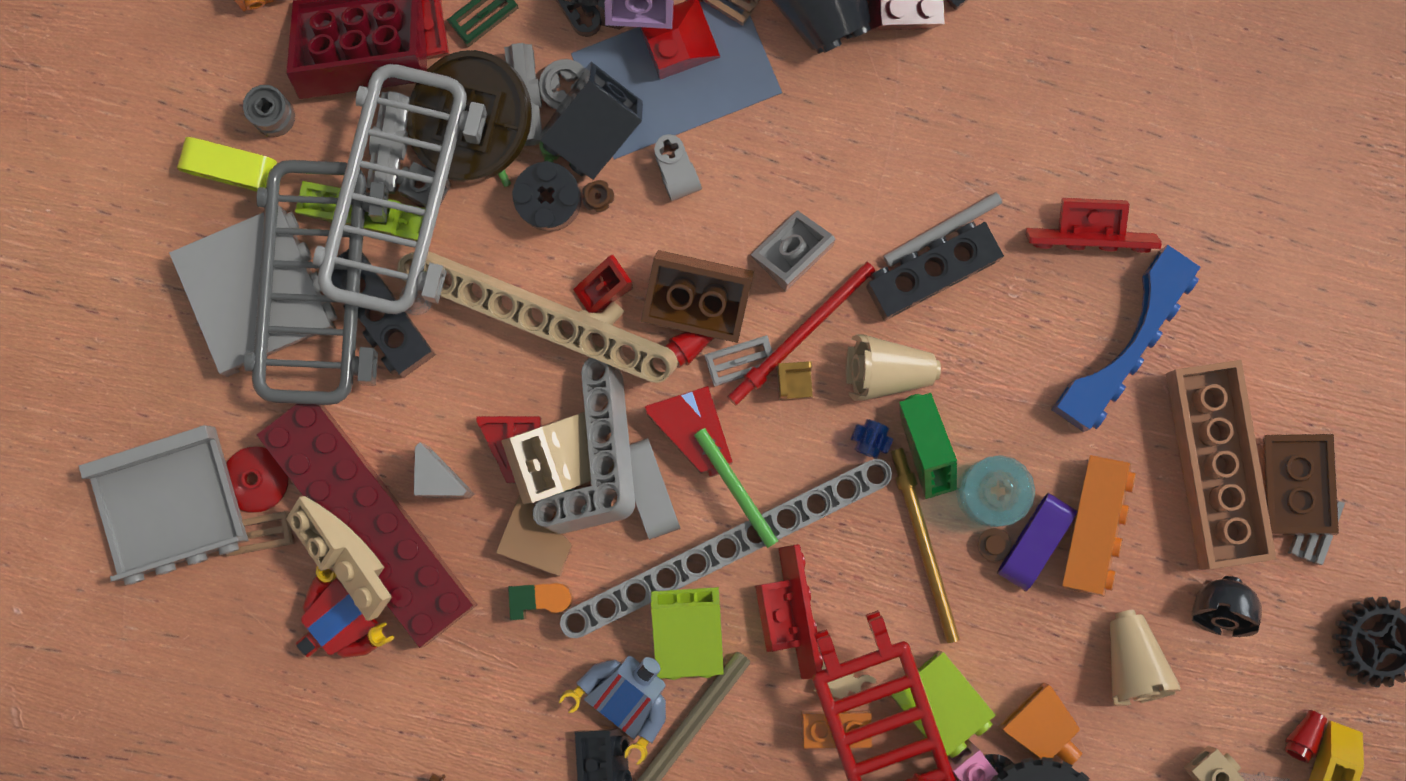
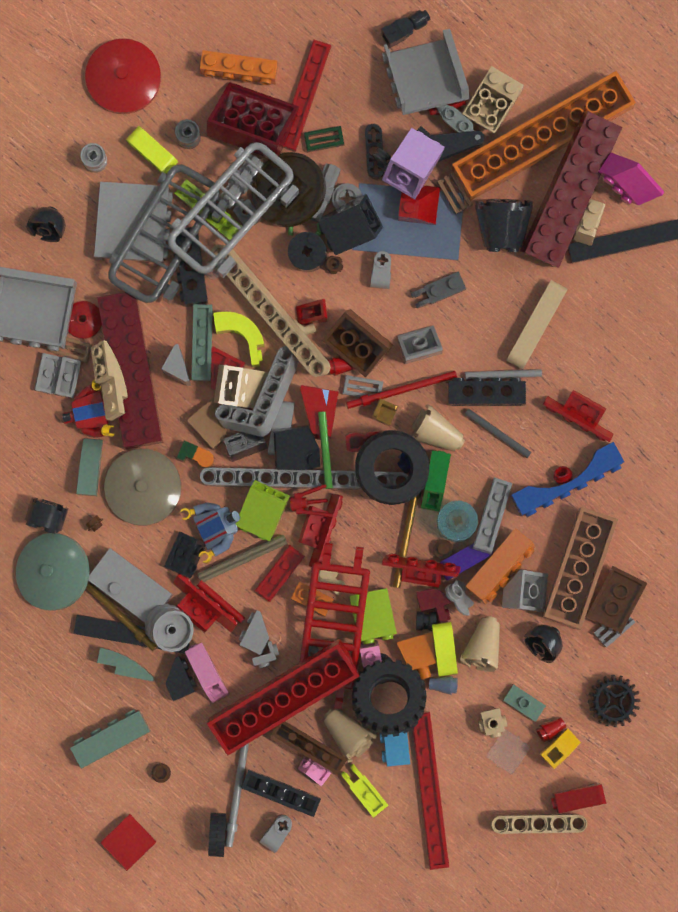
camera: 30 degrees right, 0 degrees up
(120, 360) = (46, 223): none -> black cylinder
(124, 74) = (123, 76): none -> red dish
(141, 221) = (93, 157): none -> light grey wheel
(258, 587) = (57, 375): none -> light grey slope
(382, 705) = (89, 467): none -> sand green slope
(457, 419) = (202, 342): none -> sand green plate
(481, 692) = (142, 487): none -> dark tan dish
(505, 361) = (236, 323): none -> neon yellow arch
(604, 545) = (244, 445): none -> black hinge
(690, 510) = (296, 449): none -> black slope
(738, 590) = (299, 503): none -> red plant
(763, 714) = (279, 573): none -> red tile
(780, 150) = (440, 289): none -> dark grey hinge
(796, 436) = (355, 440): none -> red brick
(901, 470) = (418, 467): none -> black tyre
(954, 128) = (536, 324): none -> tan beam
(980, 597) = (421, 571): none -> red bracket
(982, 323) = (498, 433): none -> dark grey bar
(1024, 629) = (436, 599): none -> dark red brick
(1028, 670) = (425, 621): none -> black wheel
(1044, 454) = (492, 516): none -> light grey tile
(1055, 606) = (456, 593): none -> light grey plate
(1082, 699) = (444, 649): none -> neon yellow beam
(1107, 754) = (444, 684): none -> sand blue cone
(1111, 331) = (562, 475): none -> red plate
(1156, 545) = (526, 591): none -> light grey slope
(1243, 717) = (524, 703): none -> sand green plate

